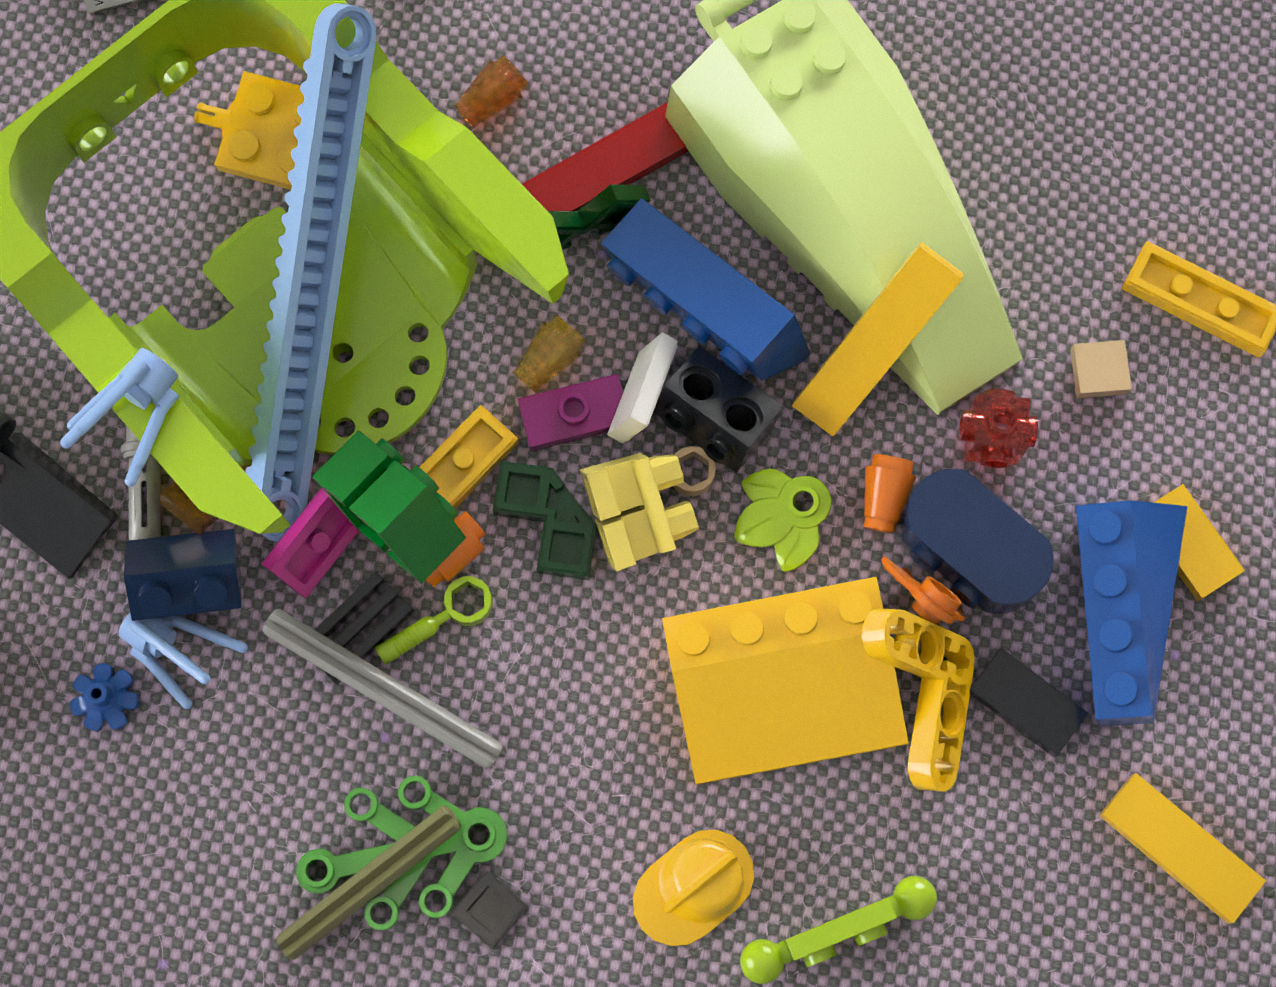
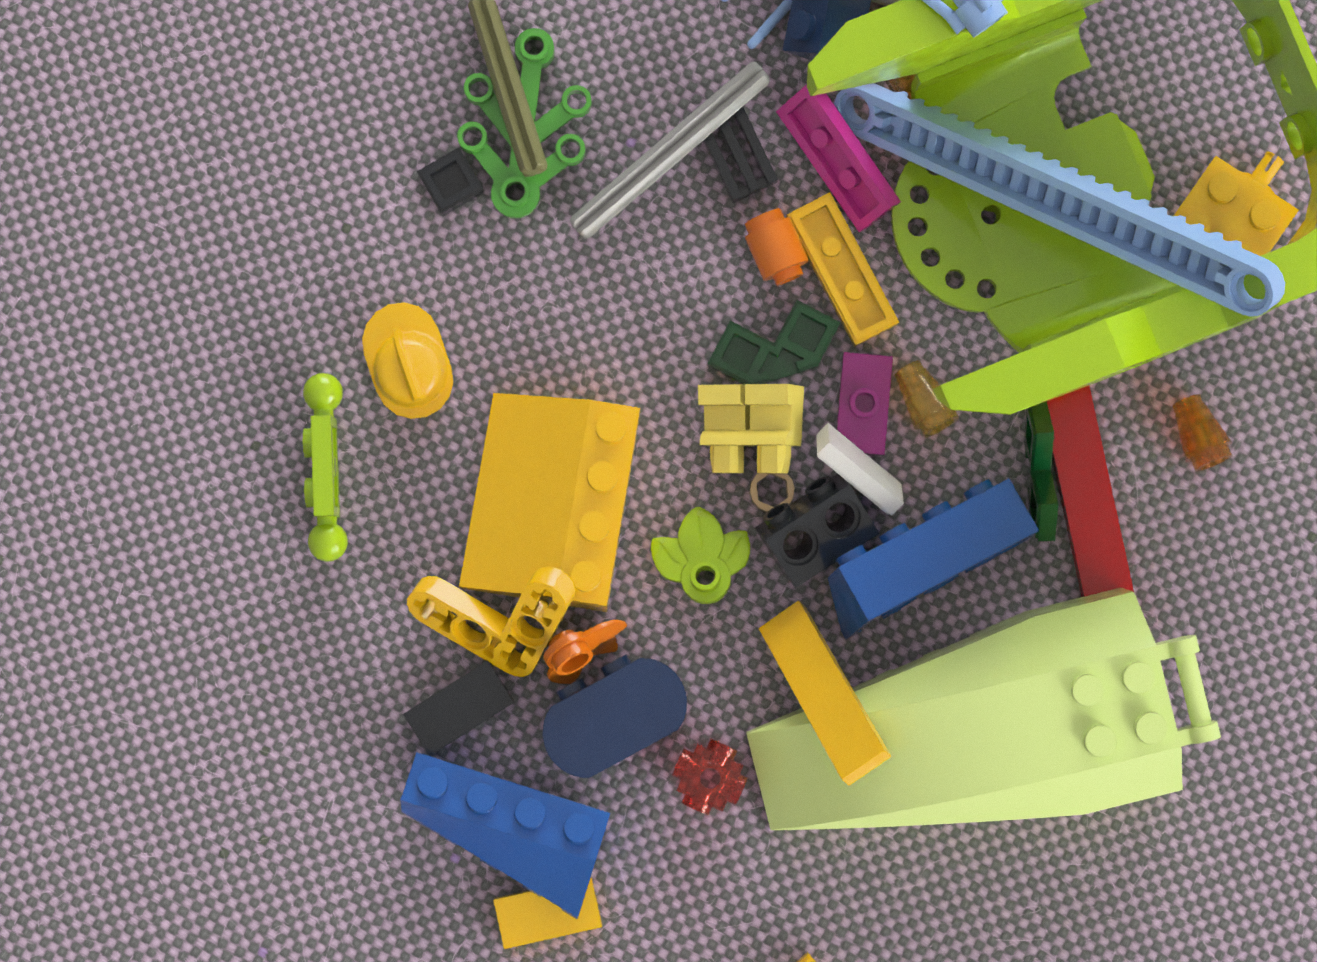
camera: 110 degrees right, 10 degrees up
(391, 504) = (821, 203): green piece -> none
(428, 625) = (714, 209): lime piece -> none
(886, 491) = (689, 655): orange cone -> none
(1100, 369) = (735, 898): tan tile -> none
(1182, 848) = (286, 791): yellow tile -> none

